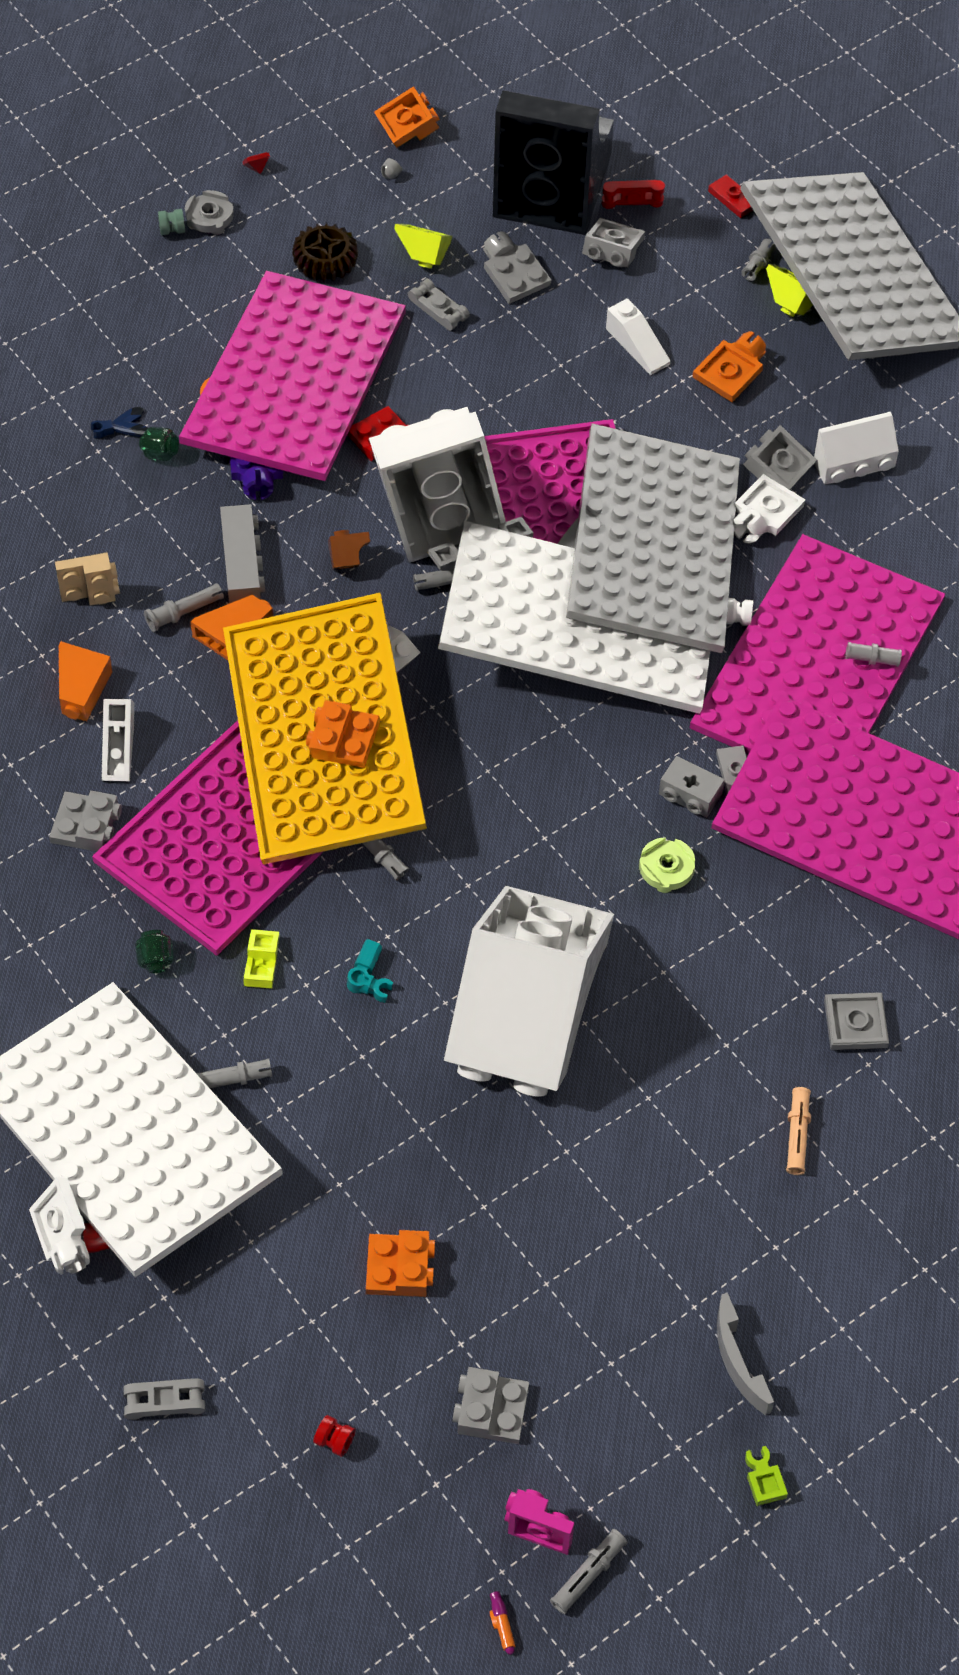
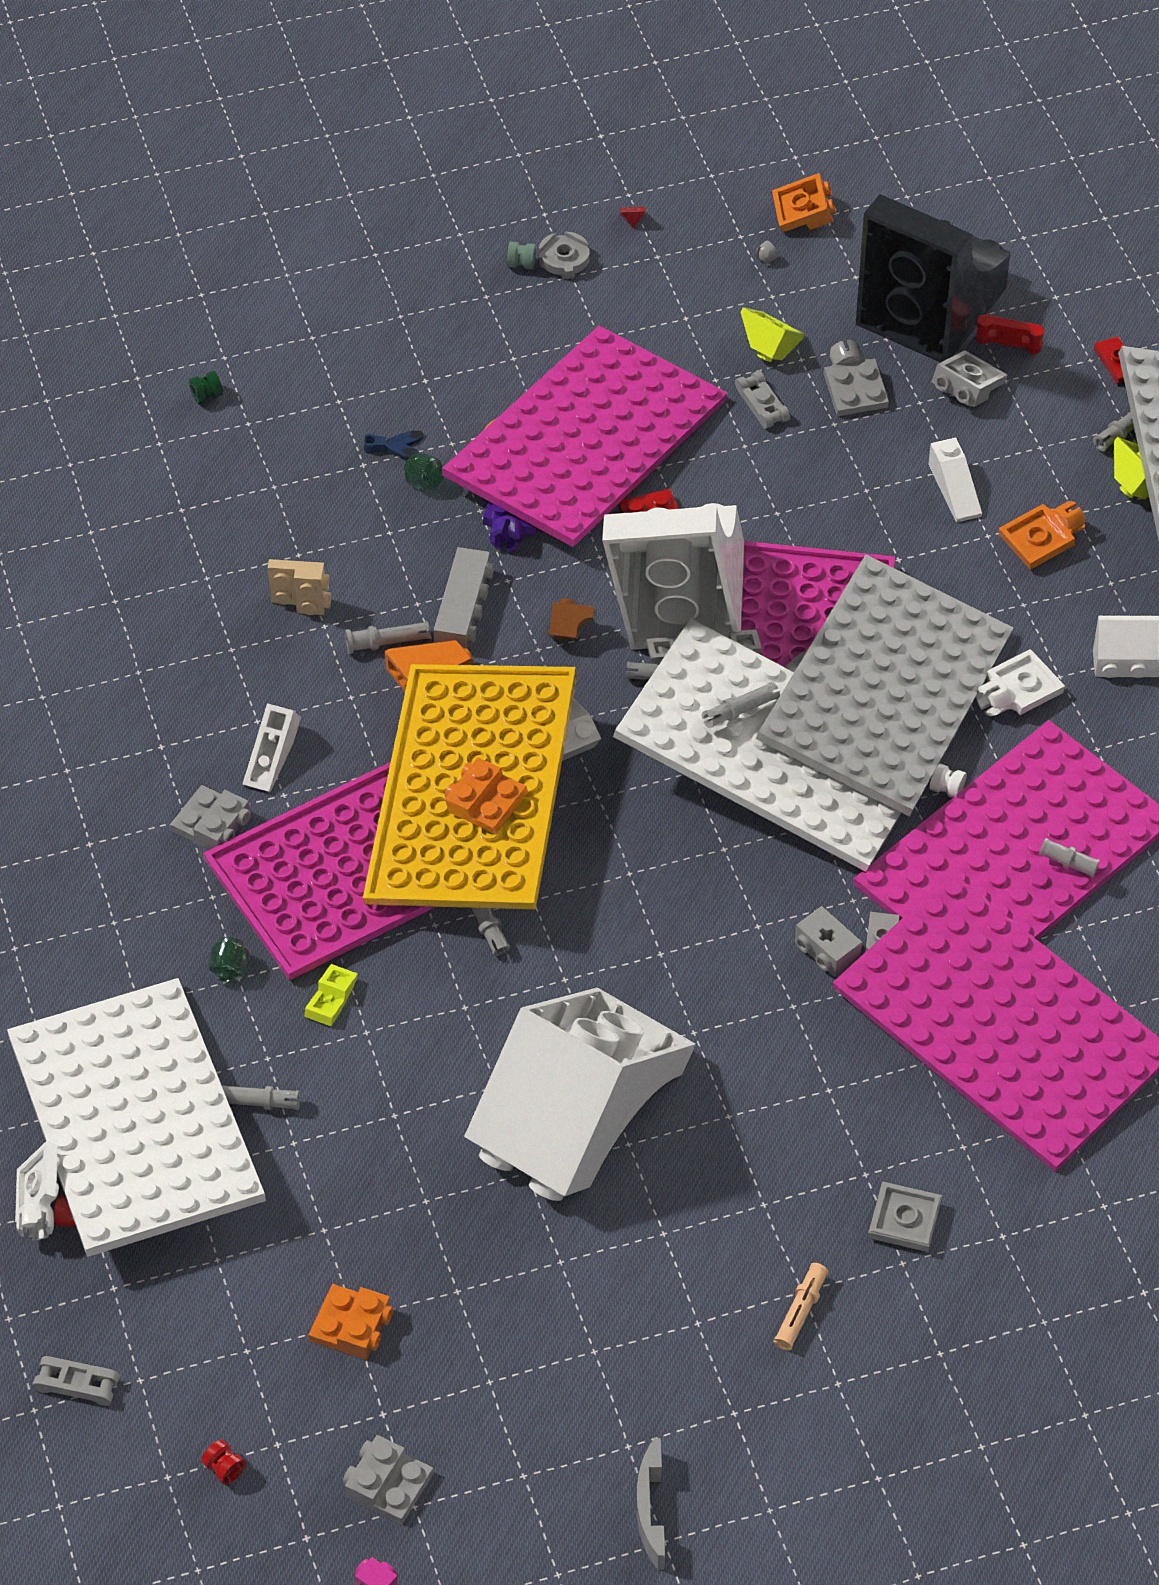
camera: 20 degrees right, 5 degrees down
(81, 679) = (258, 681): orange slope -> none
(325, 252) = (681, 324): dark brown gear -> none
(360, 977) = (420, 1039): teal bar -> none
(536, 594) = (732, 708): none -> light grey pin
(667, 878) = (773, 1026): yellowish green plate -> none
(779, 458) = (1054, 637): light grey plate -> none

